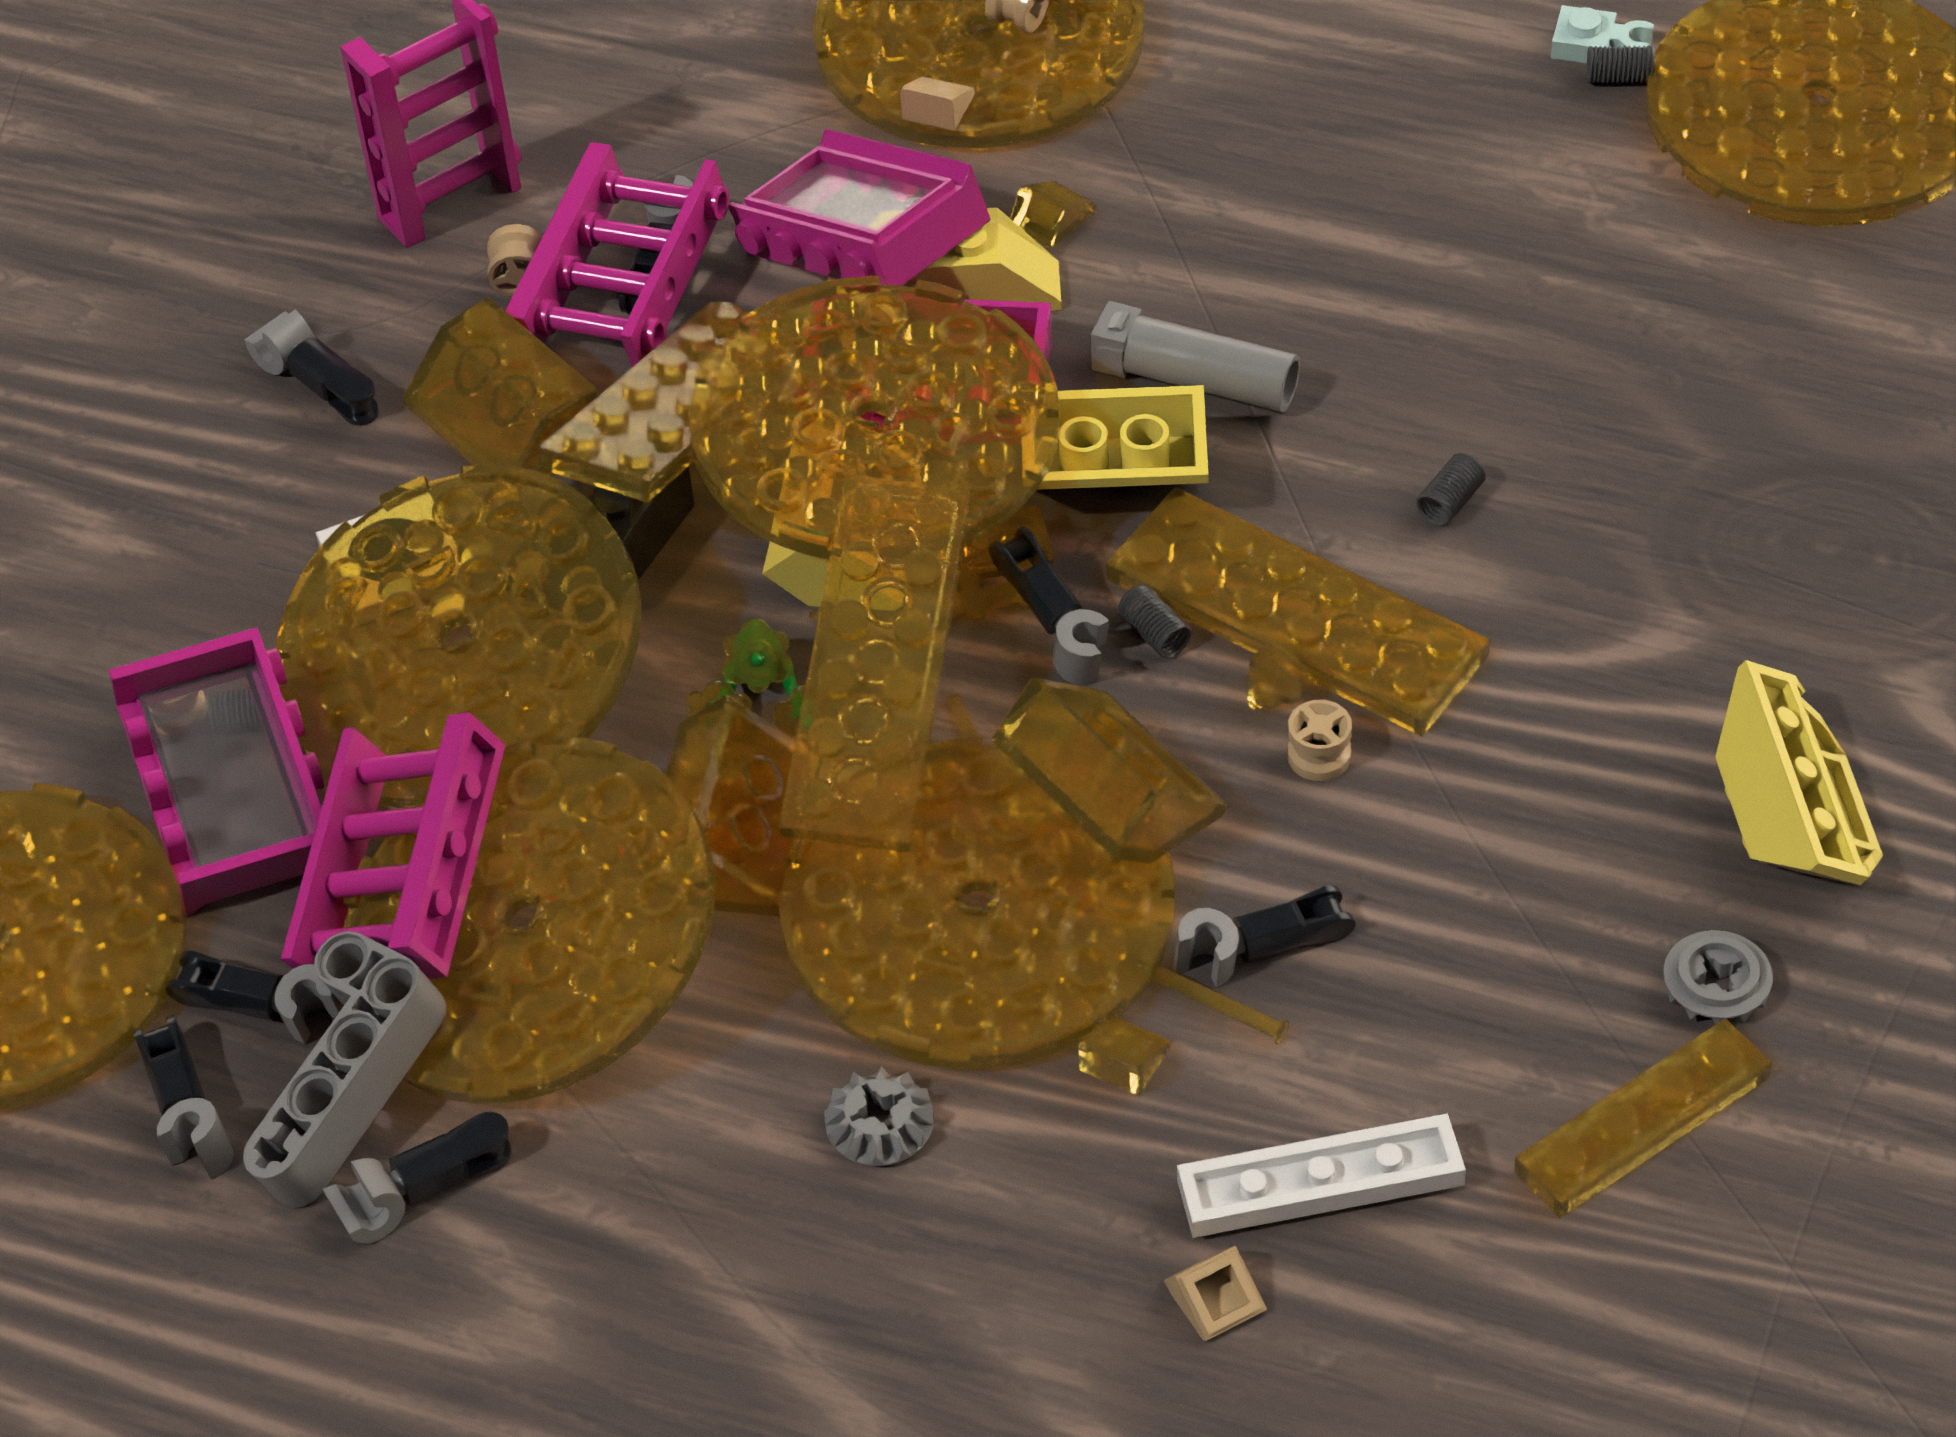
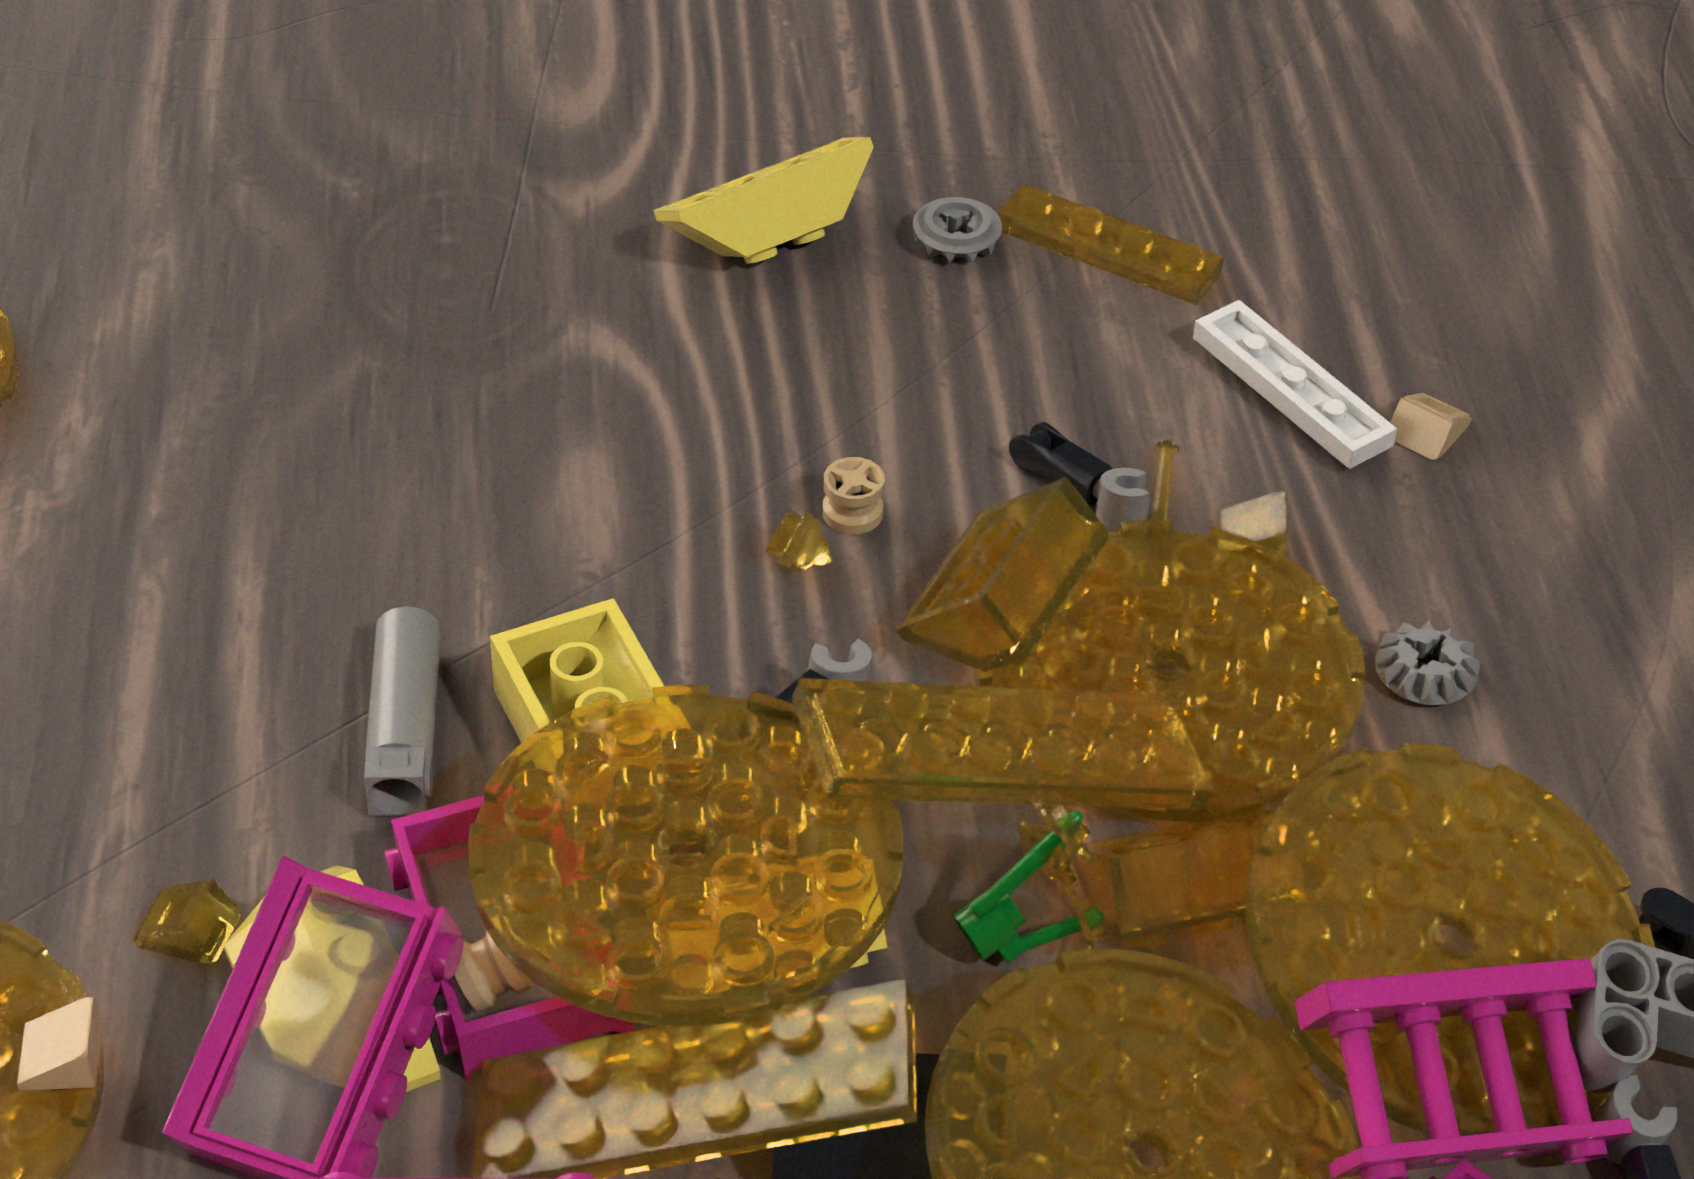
camera: 120 degrees left, 5 degrees down
(1152, 620) = (769, 639): dark grey piece -> none
(1271, 592) = (702, 549): clear yellow plate -> none
(1450, 492) = (473, 480): dark grey piece -> none

